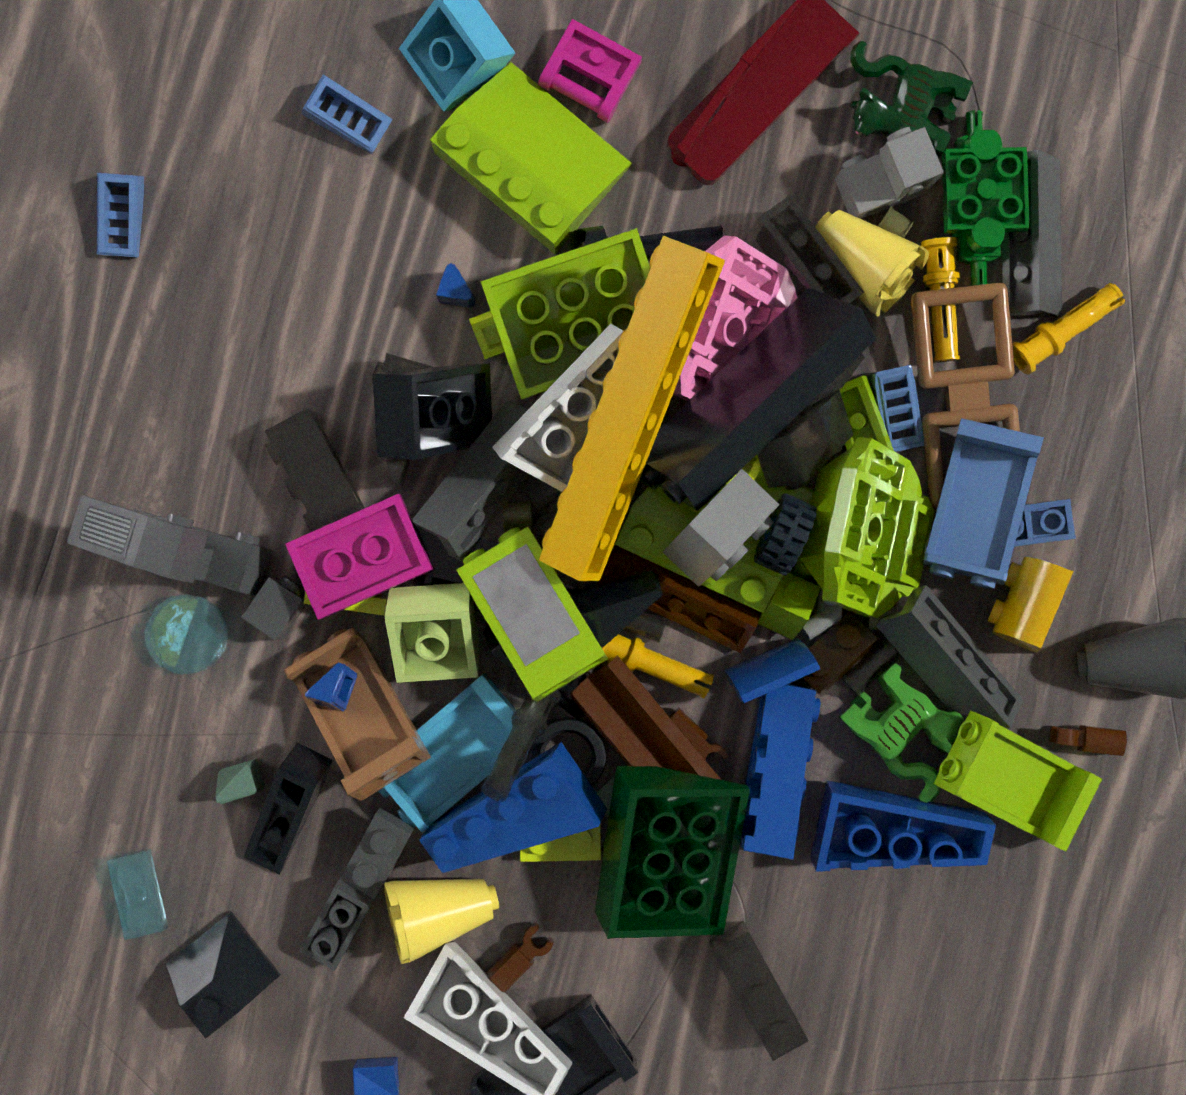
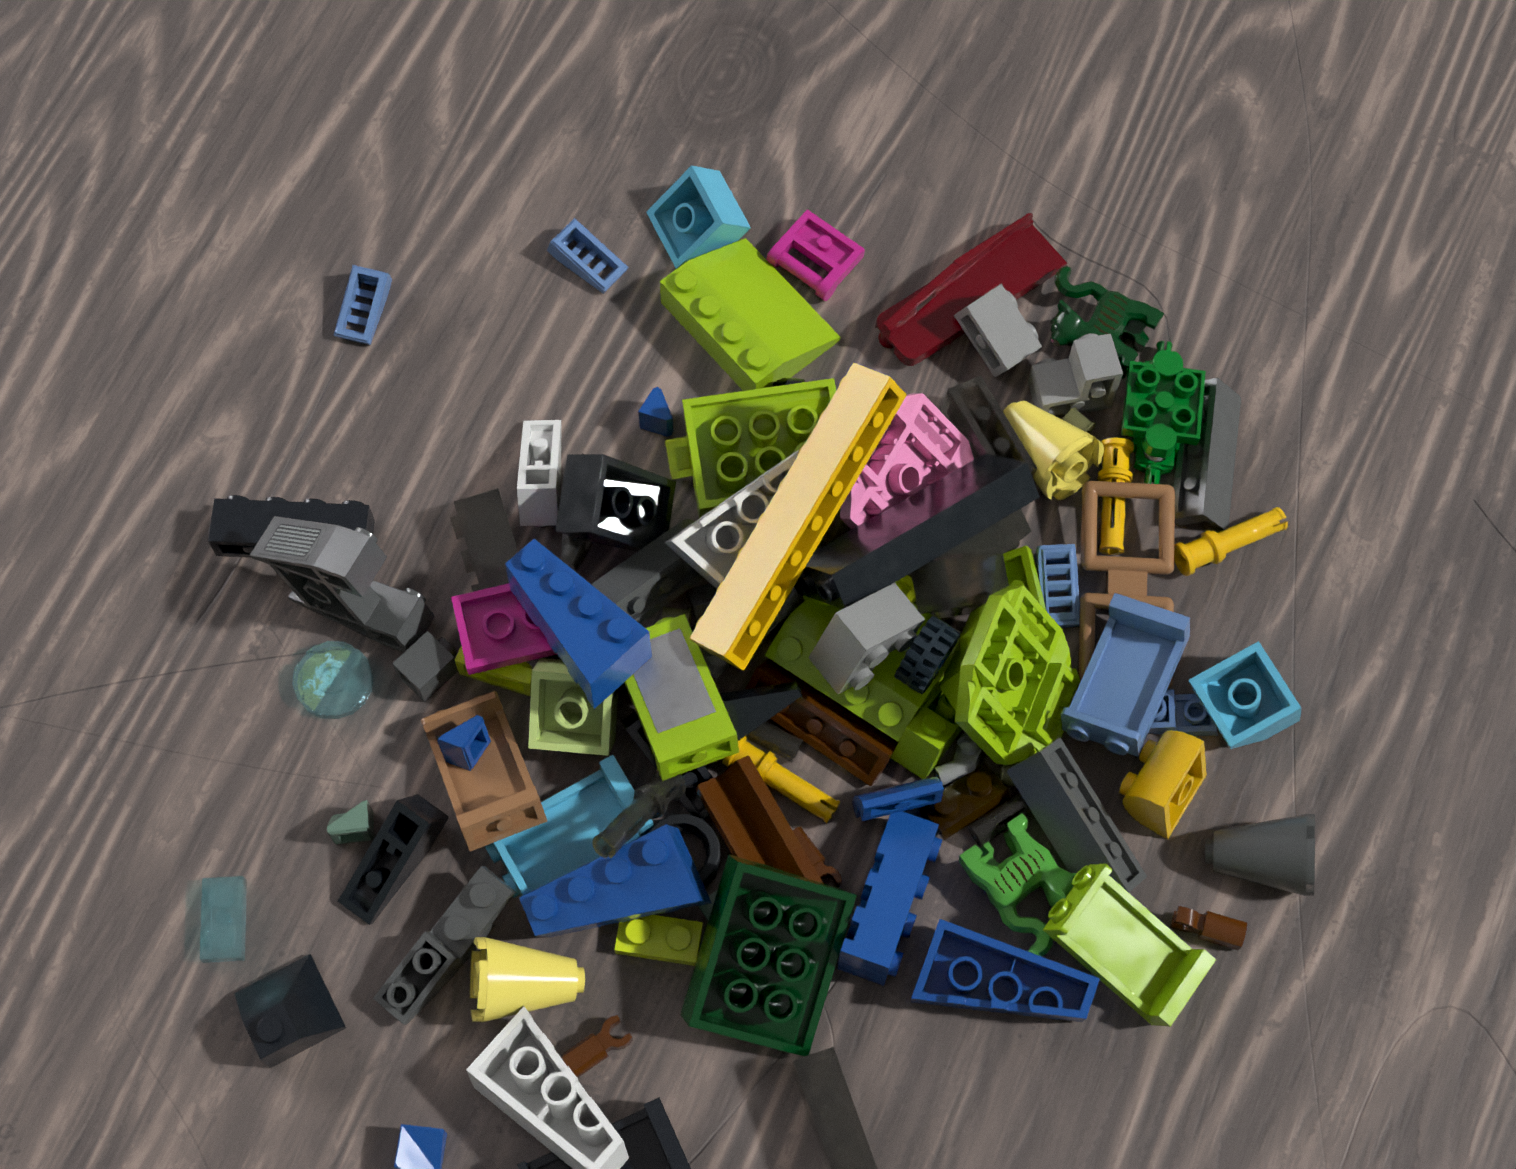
camera: 10 degrees right, 20 degrees down
(122, 480) = (241, 522): none -> black brick
(346, 375) = (539, 473): none -> white slope
(427, 567) = (580, 623): none -> blue wedge
(799, 132) = (998, 330): none -> light grey brick
(1104, 503) = (1246, 697): none -> medium azure slope

